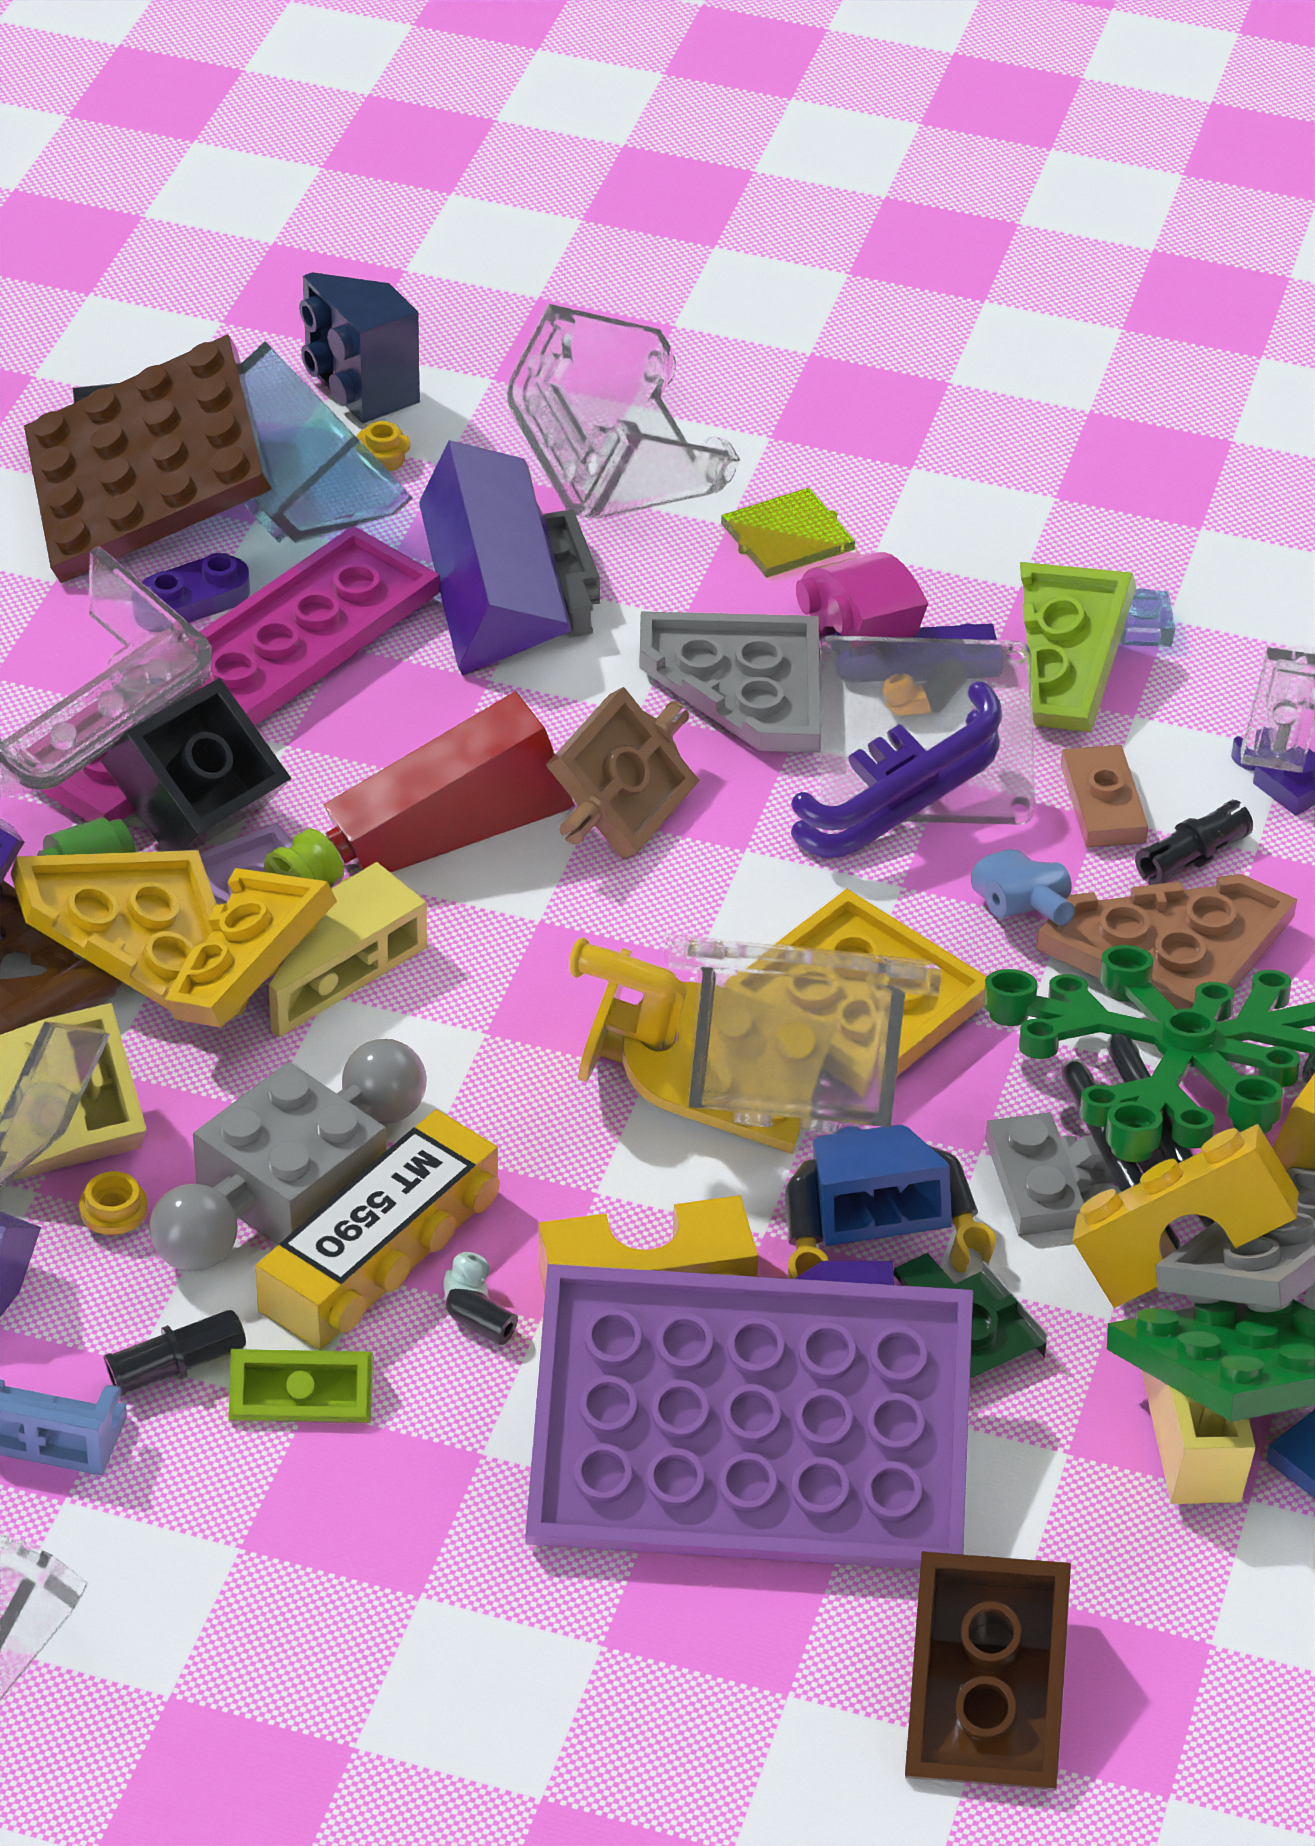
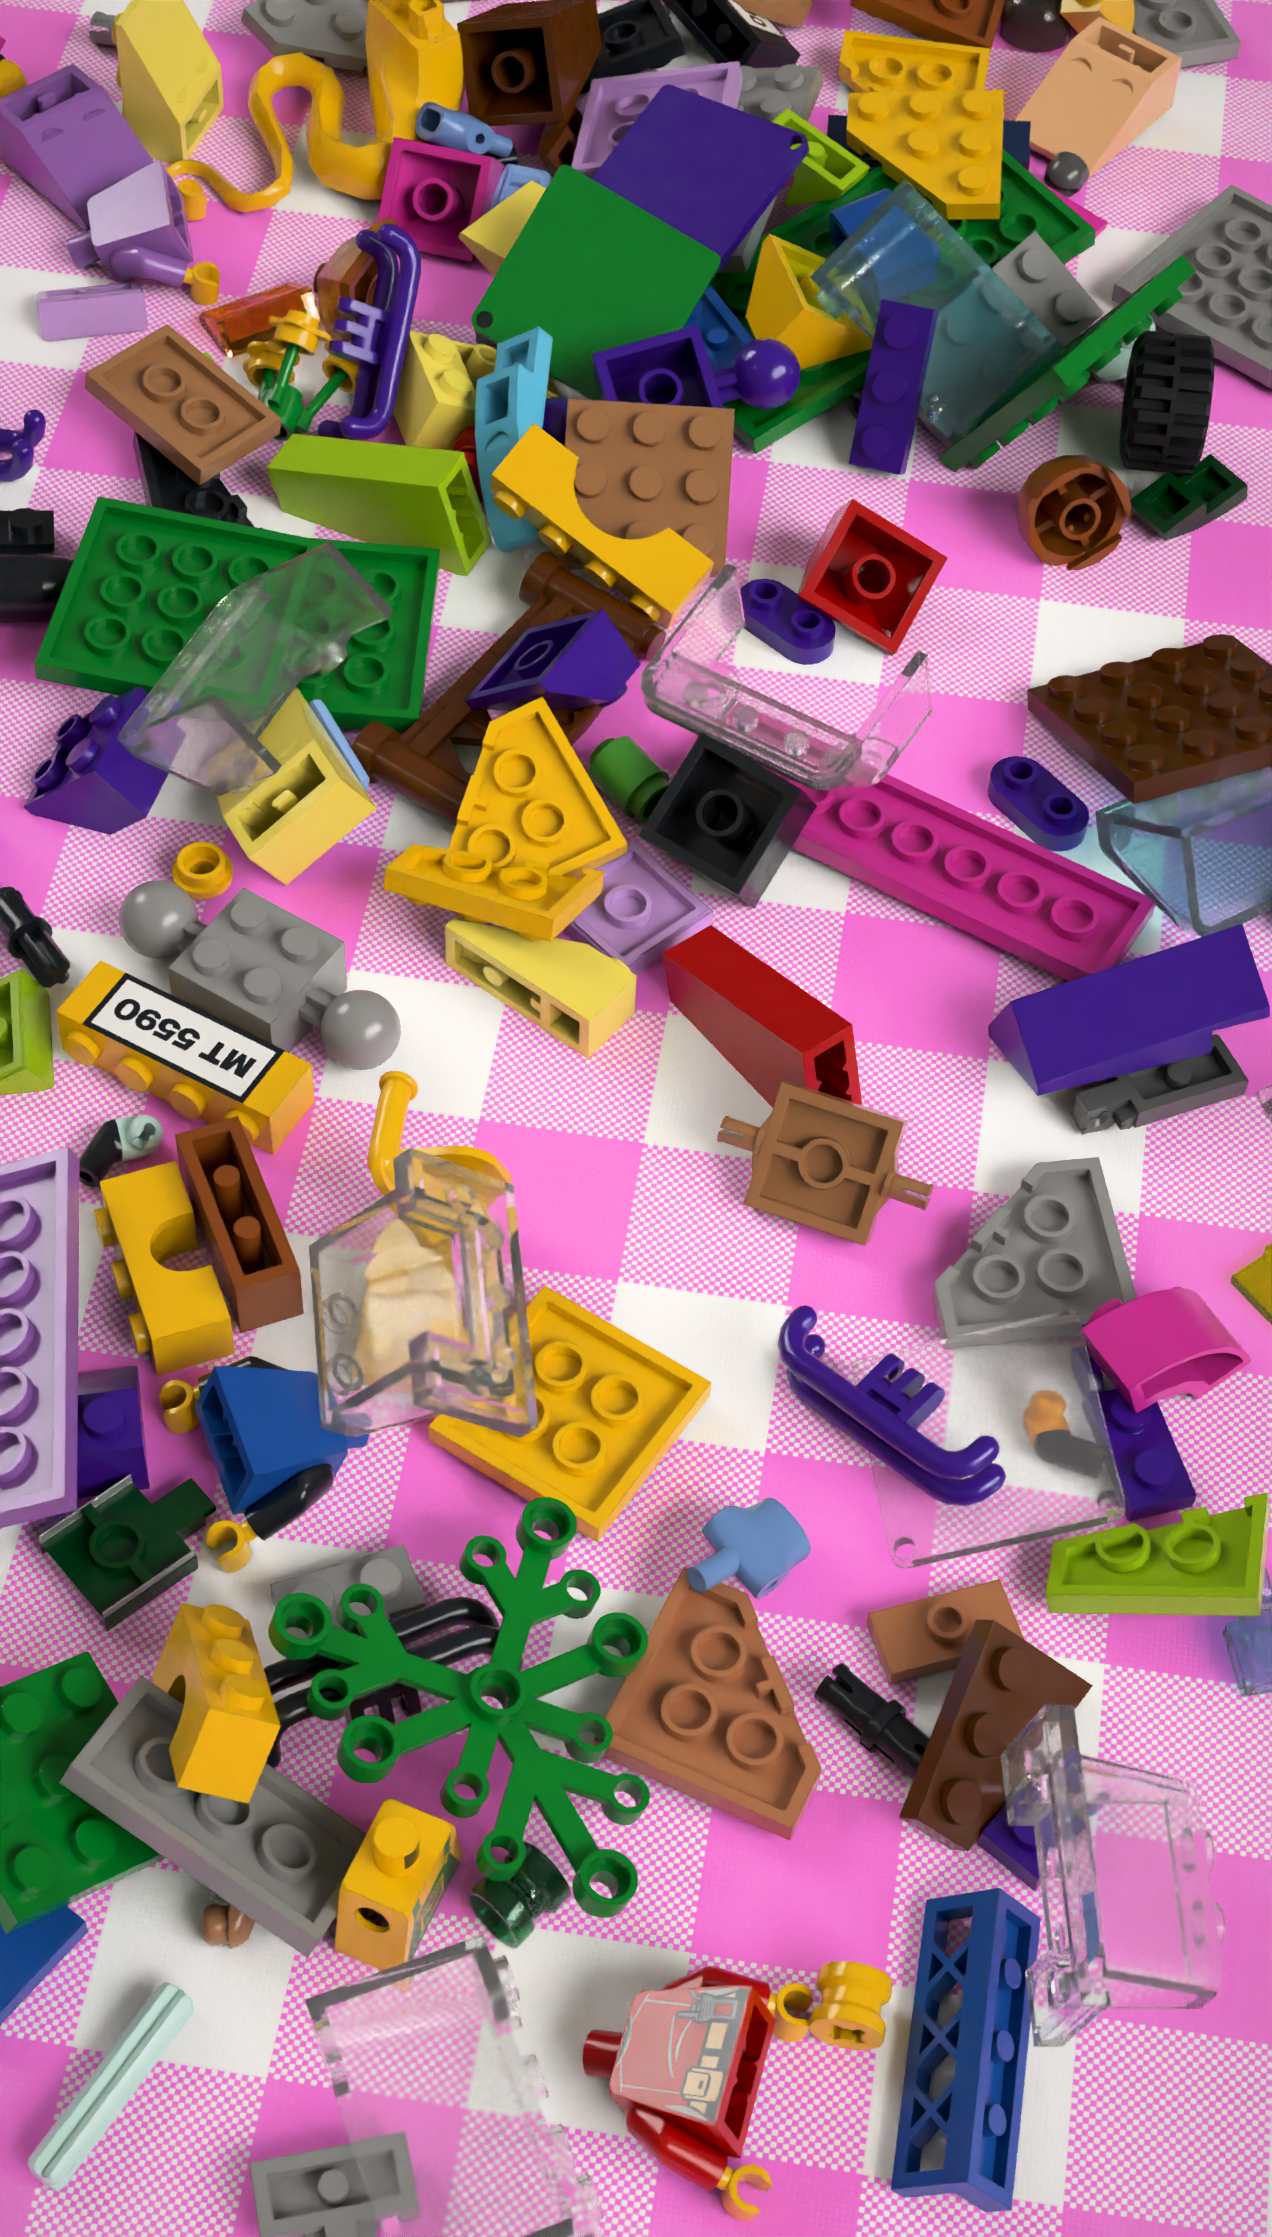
camera: 80 degrees right, 10 degrees up
(308, 857) = (620, 924): lime wheel -> none
(625, 1176) = (239, 1224): none -> dark orange brick
(1223, 771) = (988, 1704): none -> reddish brown wing

